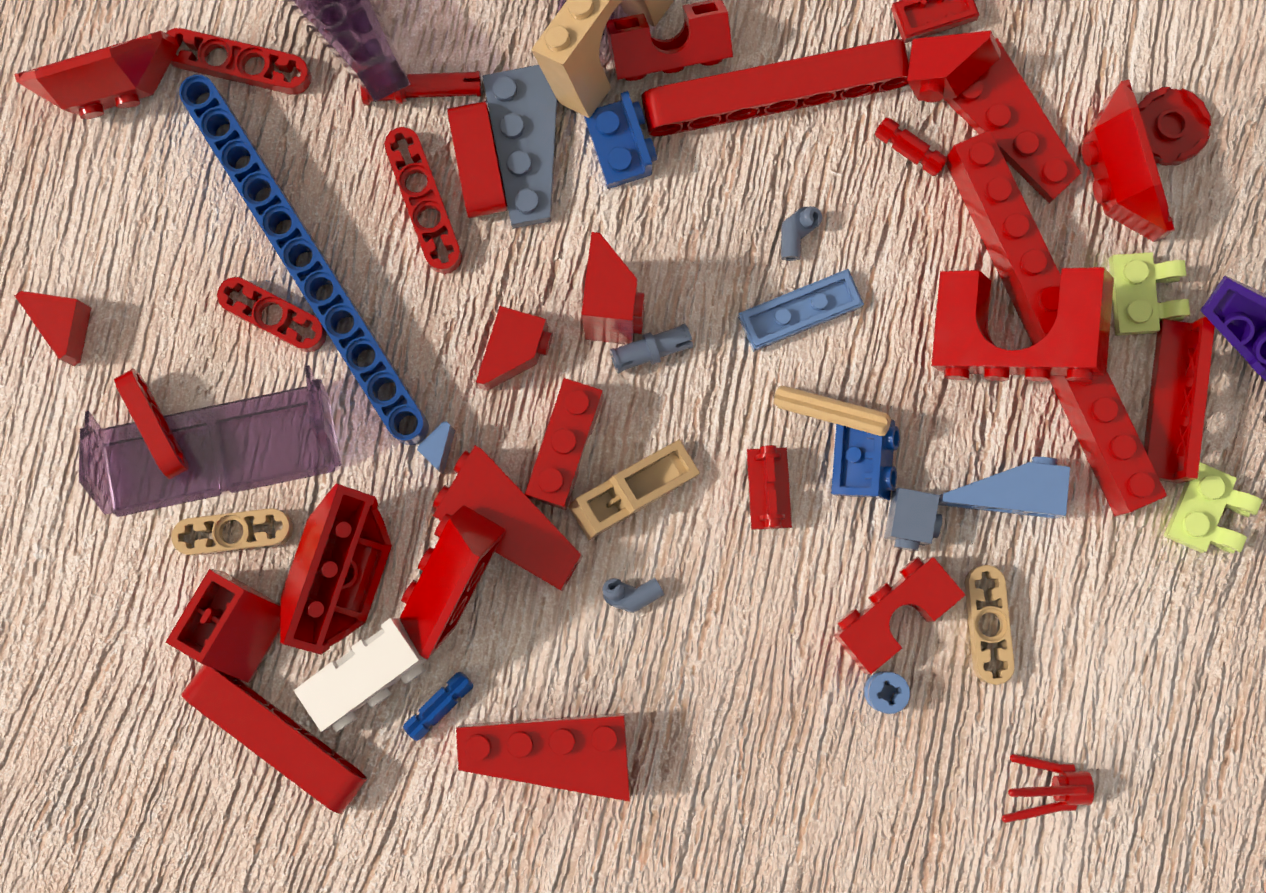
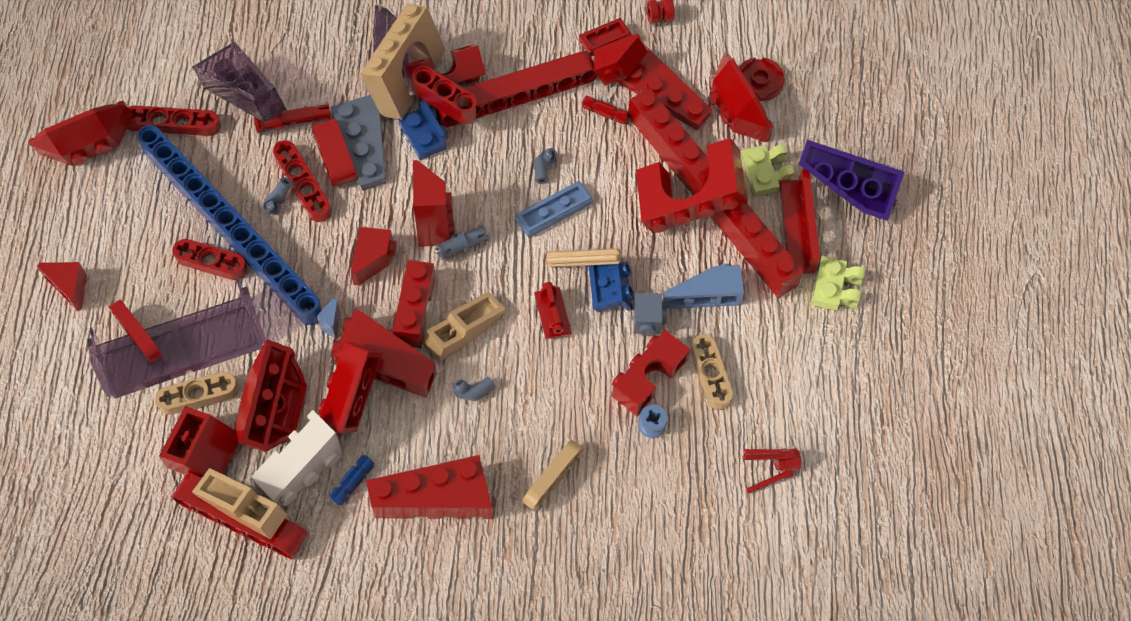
camera: 15 degrees left, 20 degrees down
(272, 733) = (240, 503): none -> tan slope
(382, 224) = (277, 196): none -> sand blue arm
(655, 77) = (439, 85): none -> red beam
(726, 752) = (552, 475): none -> tan beam

